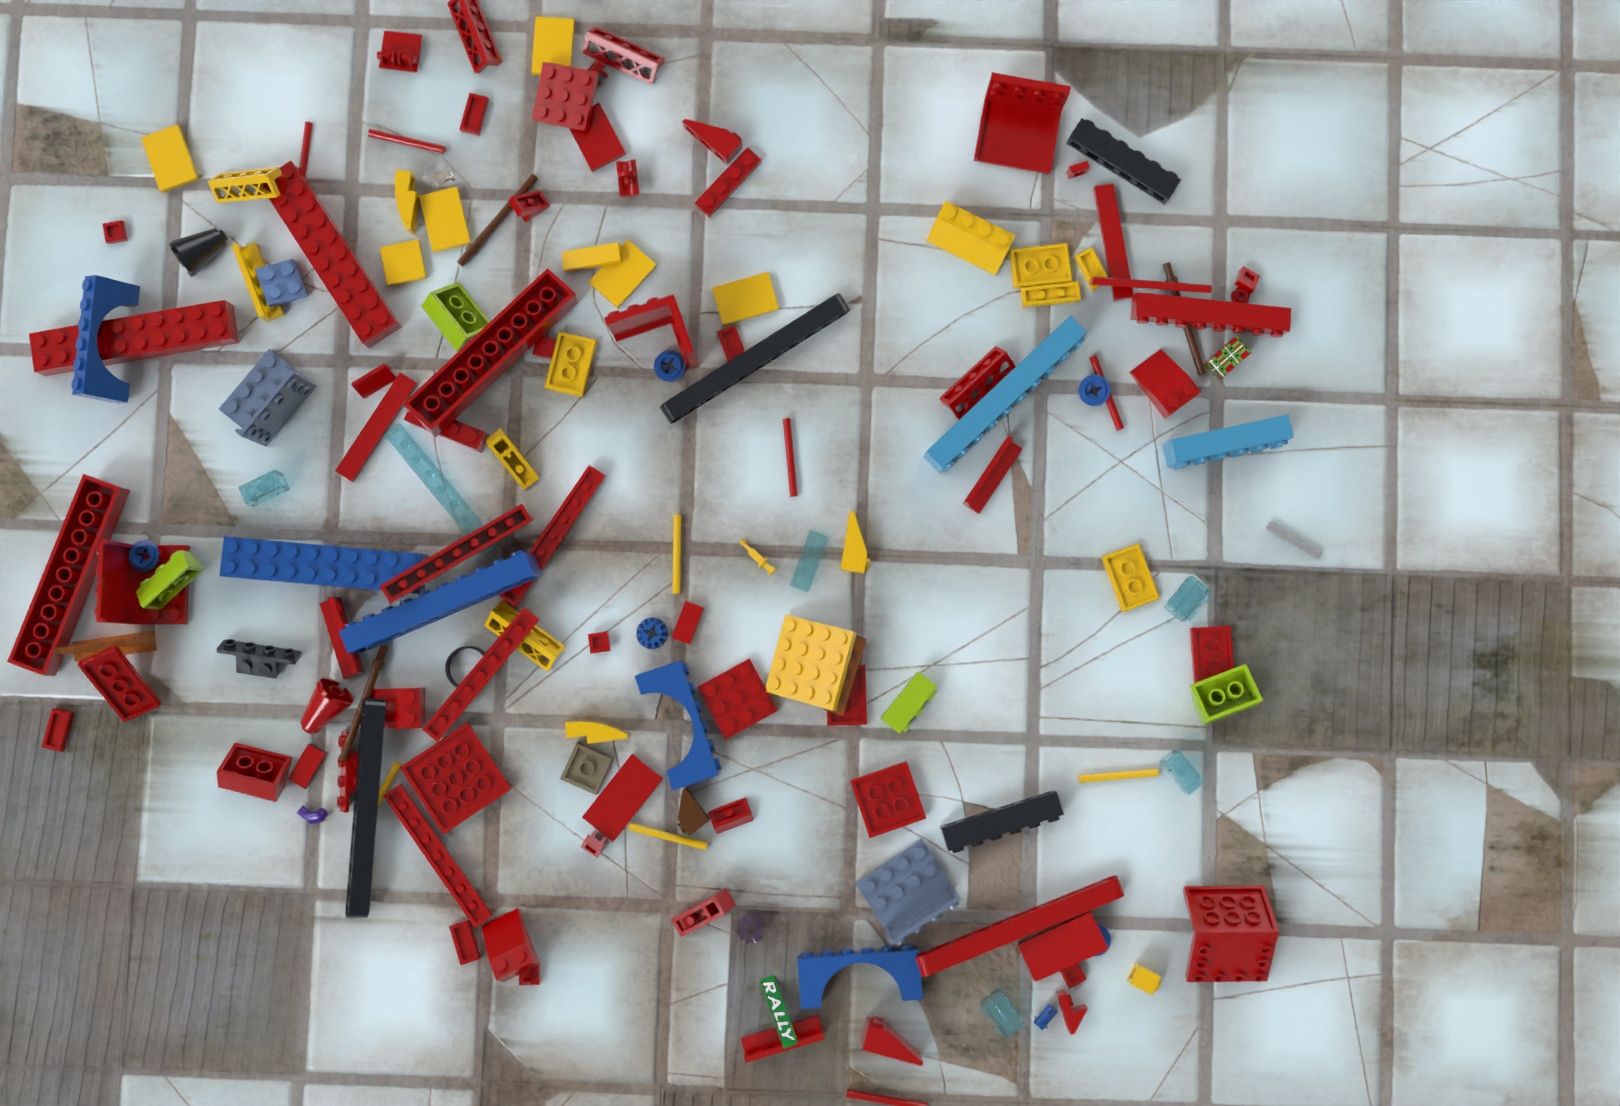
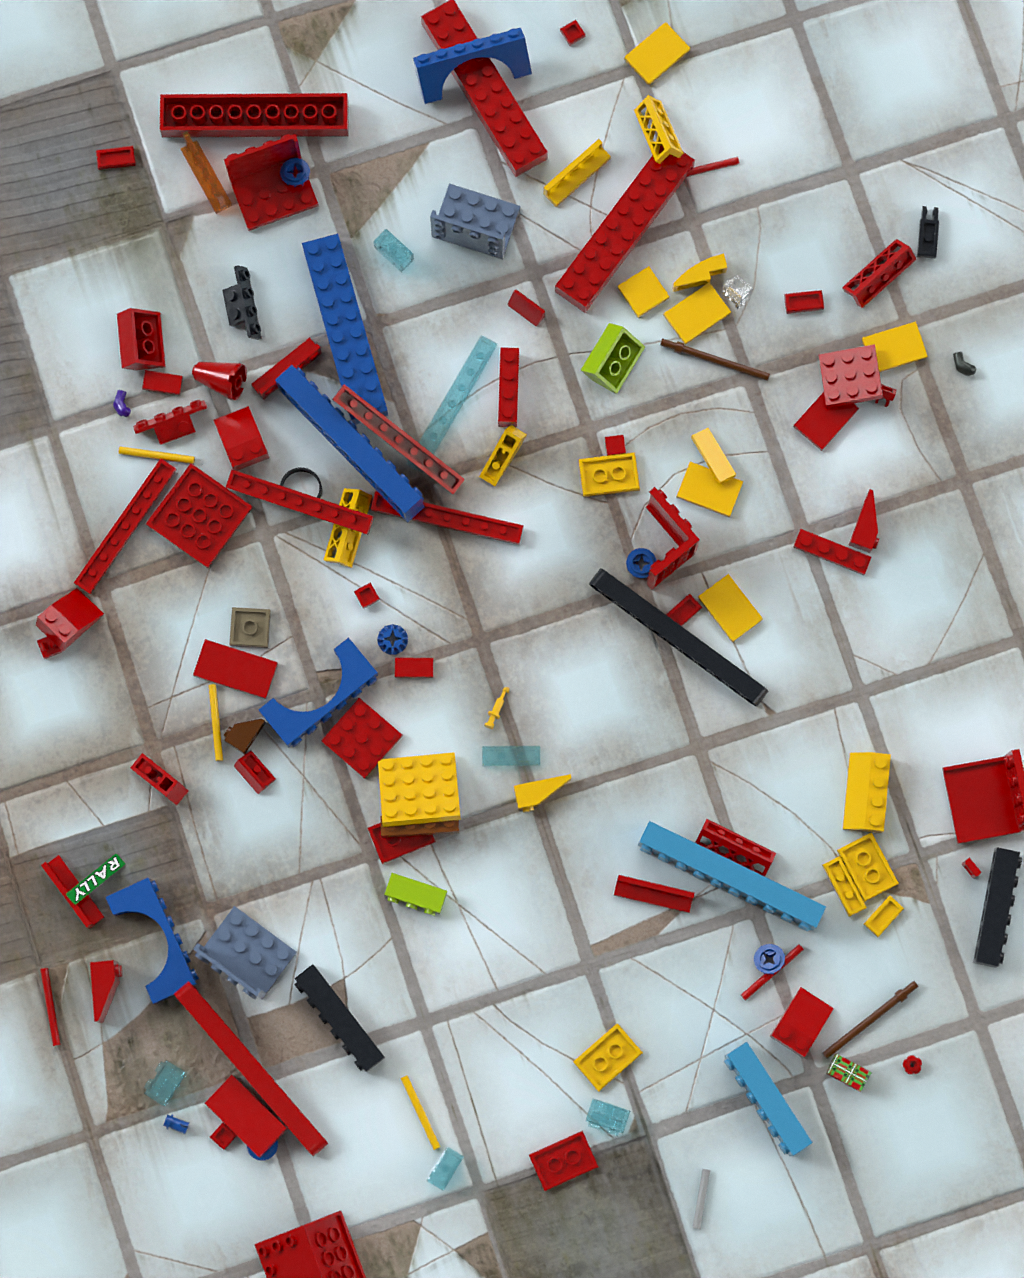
camera: 70 degrees right, 5 degrees down
(119, 683) = (176, 196): red tile -> none
(168, 580) = (282, 201): lime slope -> none
(198, 249) = (584, 111): black cone -> none
(281, 283) = (582, 193): medium blue plate -> none
(365, 808) = (145, 447): black beam -> none
(376, 427) = (485, 325): red tile -> none
(377, 665) = (273, 408): reddish brown bar -> none
(400, 51) = (835, 214): red hinge -> none
(406, 141) = (755, 252): red bar -> none
(465, 942) = (57, 579): red tile -> none
(491, 352) = (590, 401): red brick -> none
(529, 204) = (739, 382): red slope -> none
(592, 845) = (183, 658): tile -> none
(594, 731) = (285, 621): yellow slope -> none
(626, 49) = (915, 411): red fence -> none
(627, 178) = (798, 460): red hips -> none
(676, 554) = (472, 634): yellow bar -> none
(751, 920) = (163, 833): clear purple brick -> none
(790, 457) = (599, 703): red bar -> none
(888, 799) = (321, 907): red plate -> none
(1071, 1016) = (185, 1147): red slope -> none
(1112, 238) = (917, 926): red tile -> none
(1144, 979) = (243, 1203): yellow brick -> none
(1153, 285) = (887, 973): red tile -> none
(1210, 314) = (882, 1041): red brick -> none
(1225, 695) = (530, 1182): lime slope -> none
(1247, 280) = (930, 1064): red plate -> none

